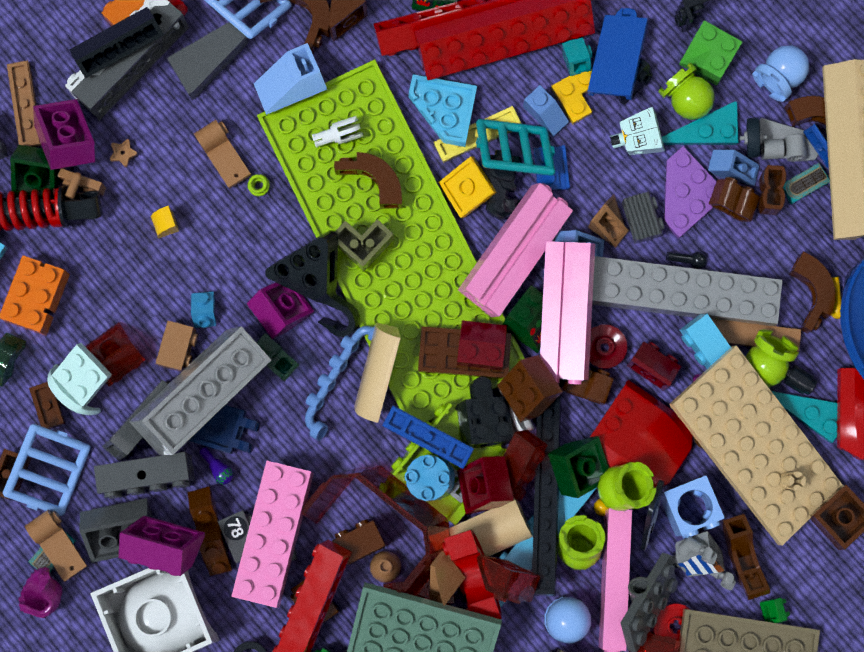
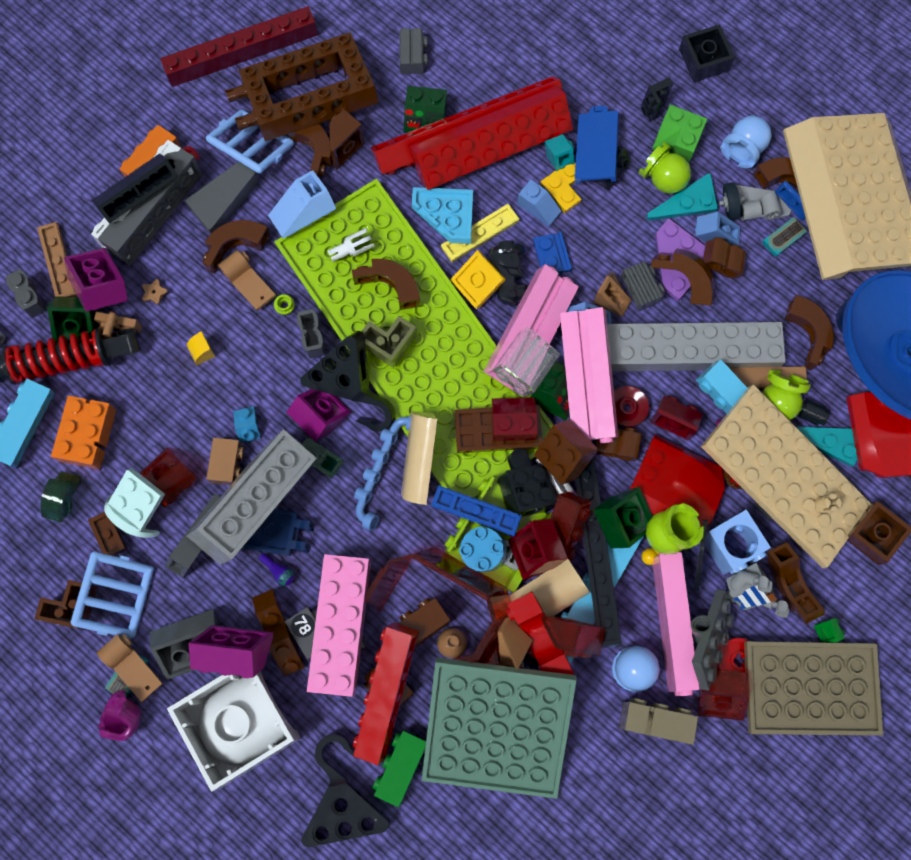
camera: 10 degrees left, 5 degrees down
(130, 475) = (208, 586): dark grey brick -> none
(210, 102) = (231, 235): none -> reddish brown arch
(283, 217) = (311, 333): none -> dark grey brick
(502, 288) = (526, 362): none -> clear brick
(507, 164) = (511, 249): teal bar -> none
(580, 542) = (637, 591): lime tile -> none
(639, 134) = (628, 212): light aqua torso -> none
(697, 260) = (697, 317): black bar -> none
(699, 210) = (694, 269): none -> reddish brown arch
(771, 186) = (757, 245): reddish brown brick -> none
(836, 310) = (838, 344): yellow bar -> none

